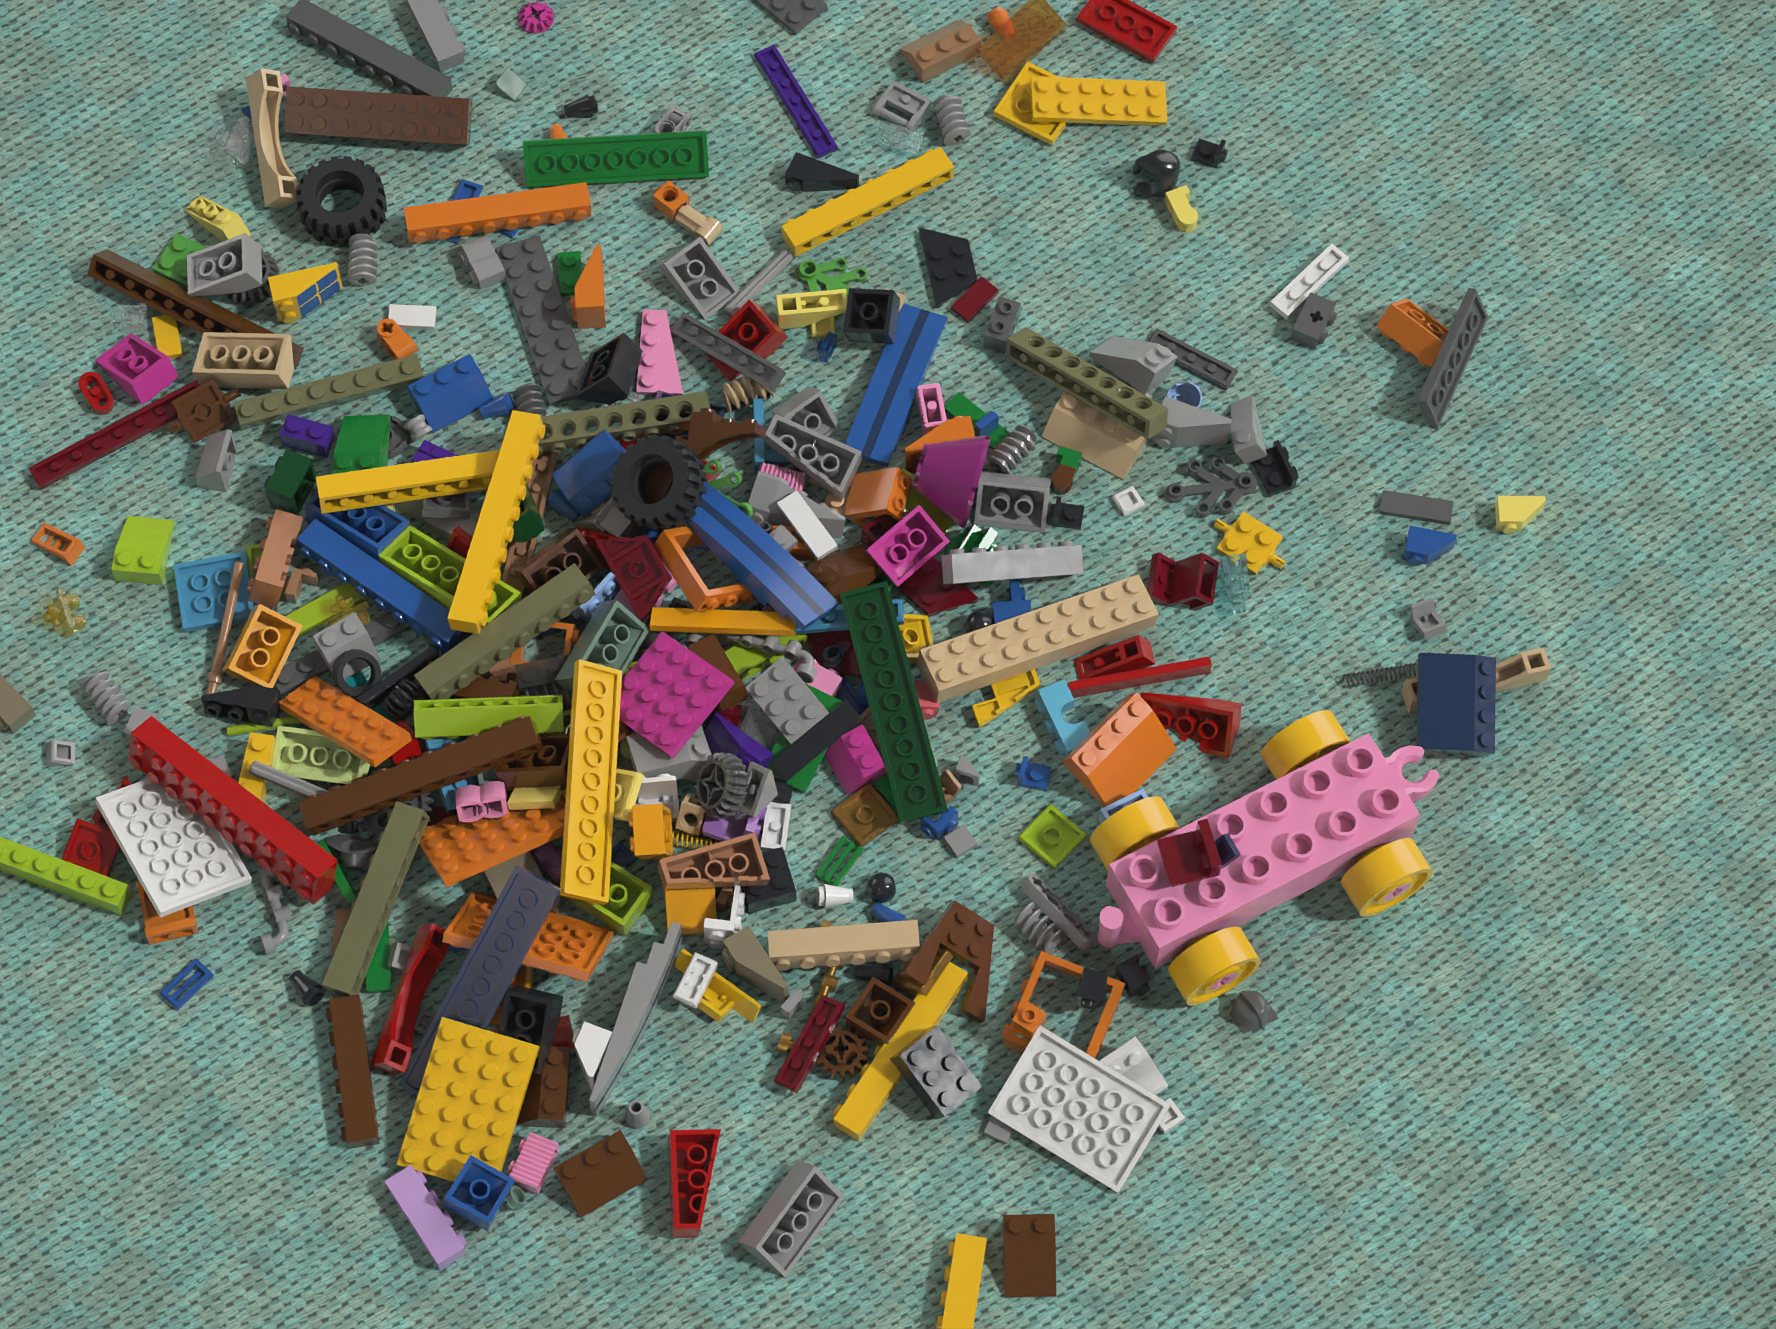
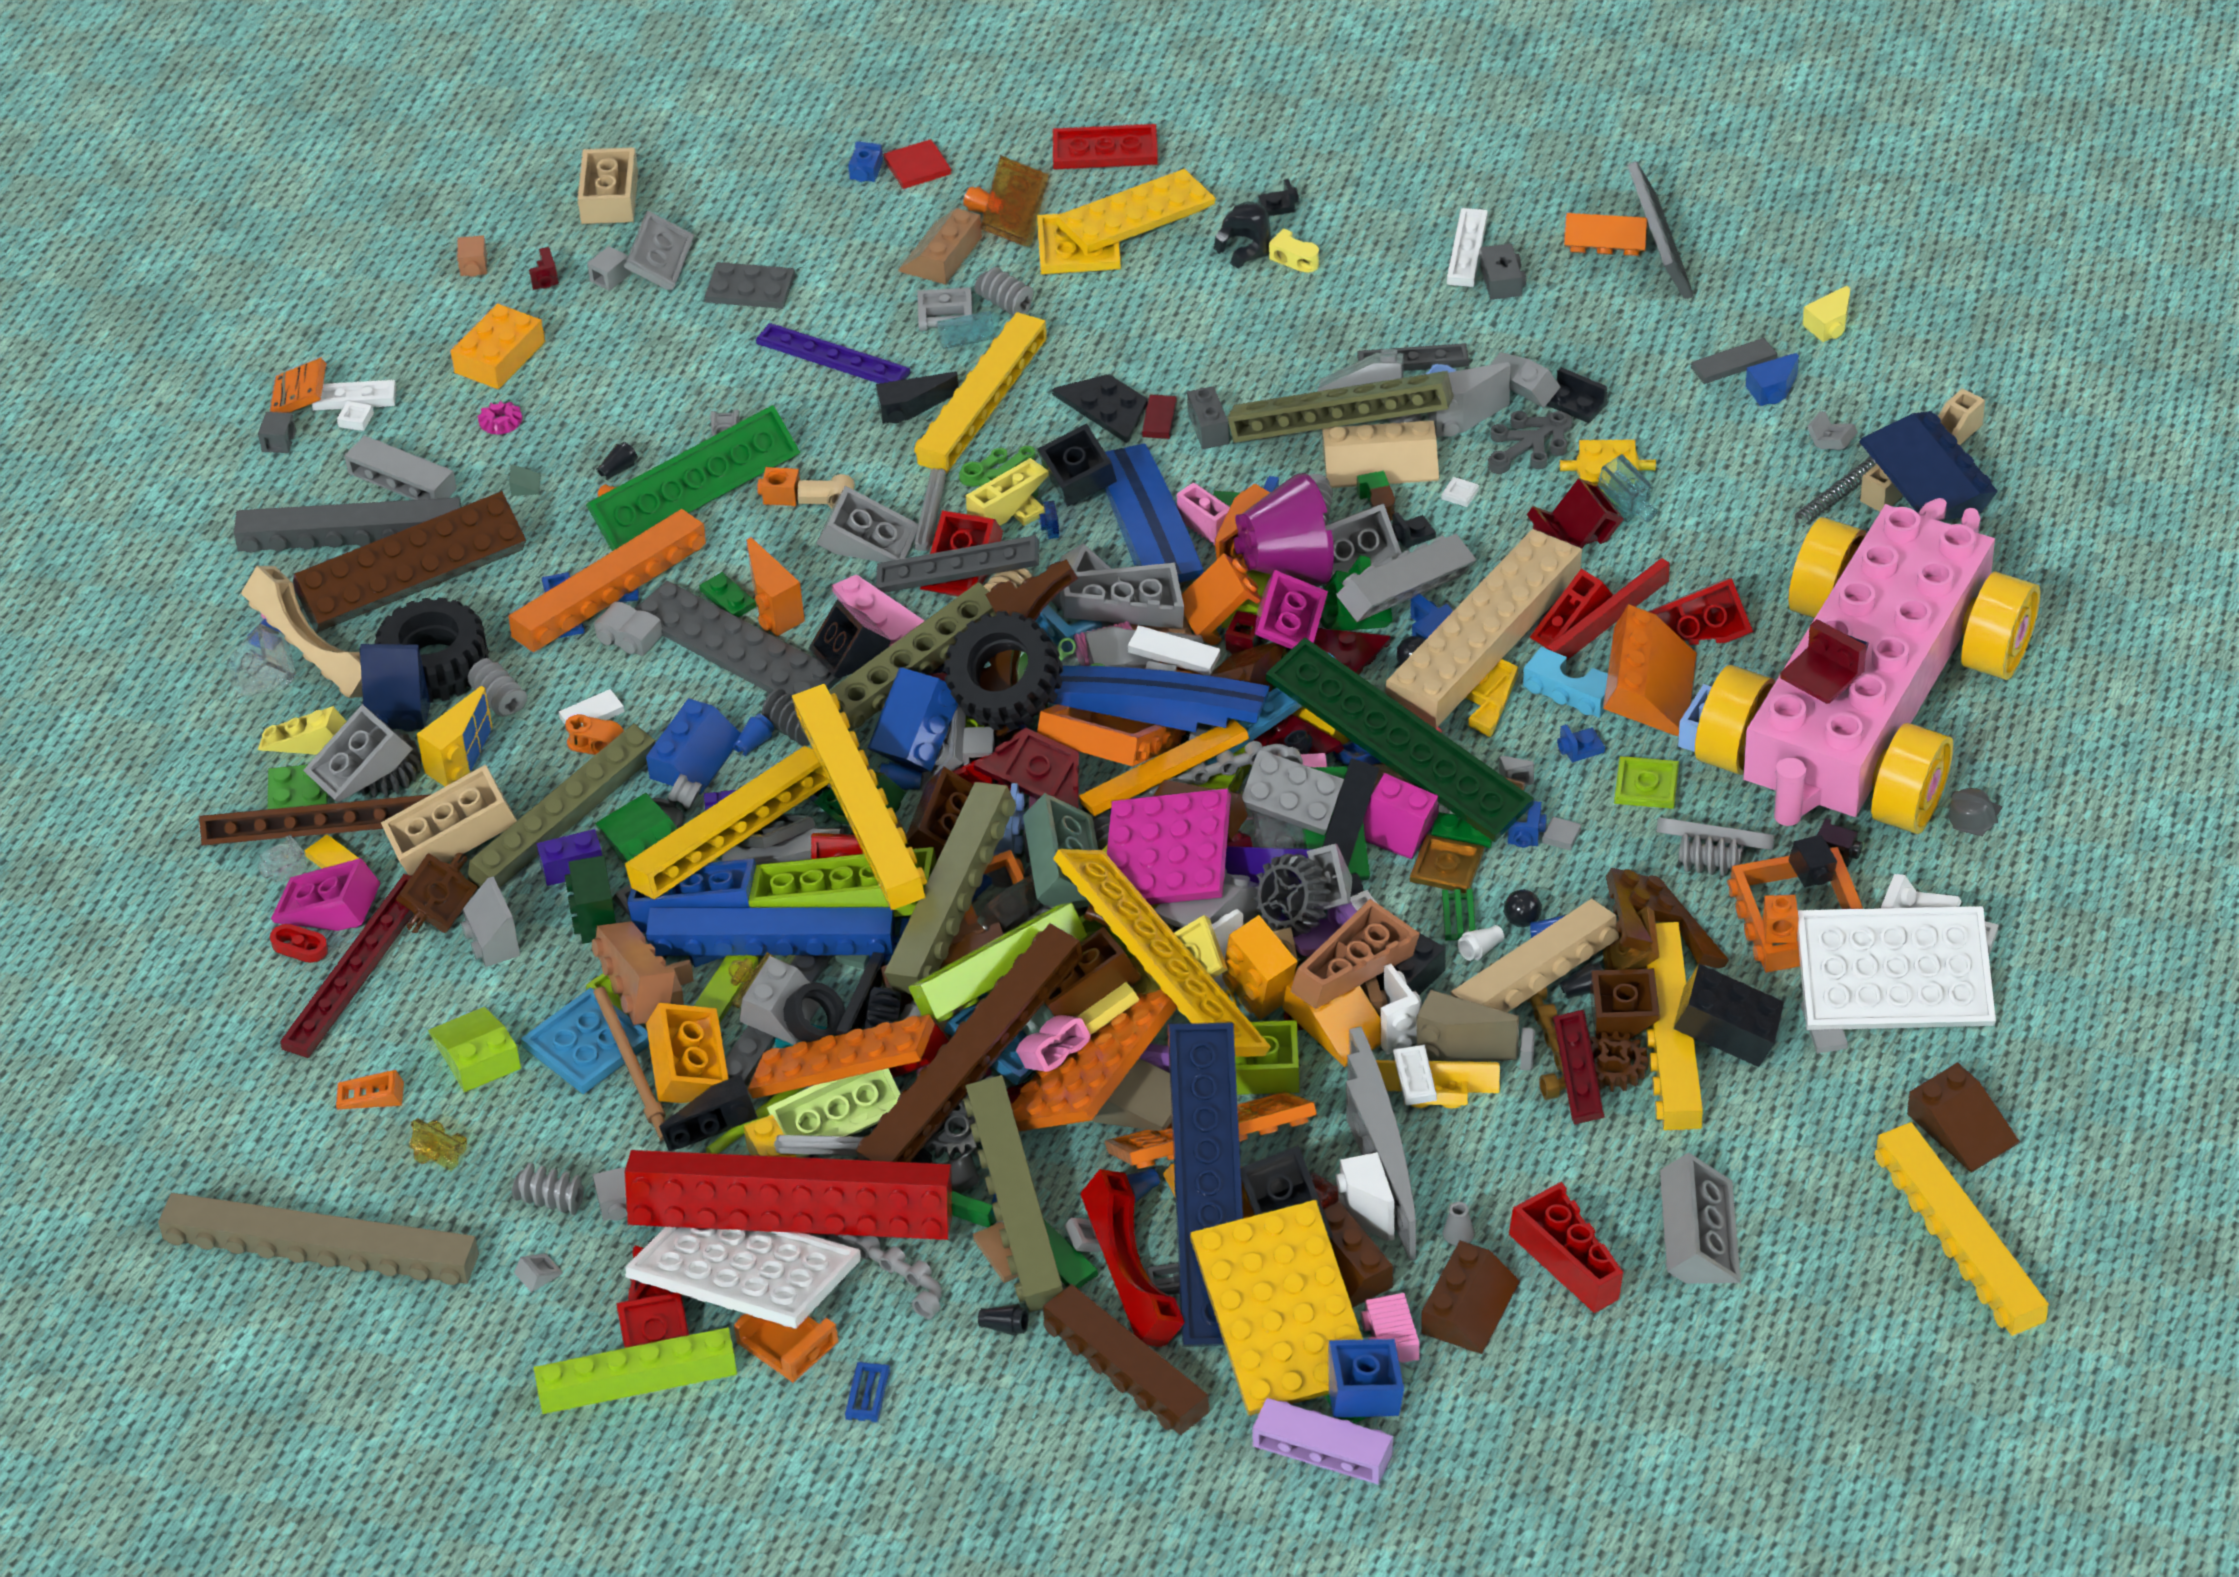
camera: 30 degrees left, 20 degrees down
(288, 224) = (395, 685): none -> dark blue slope

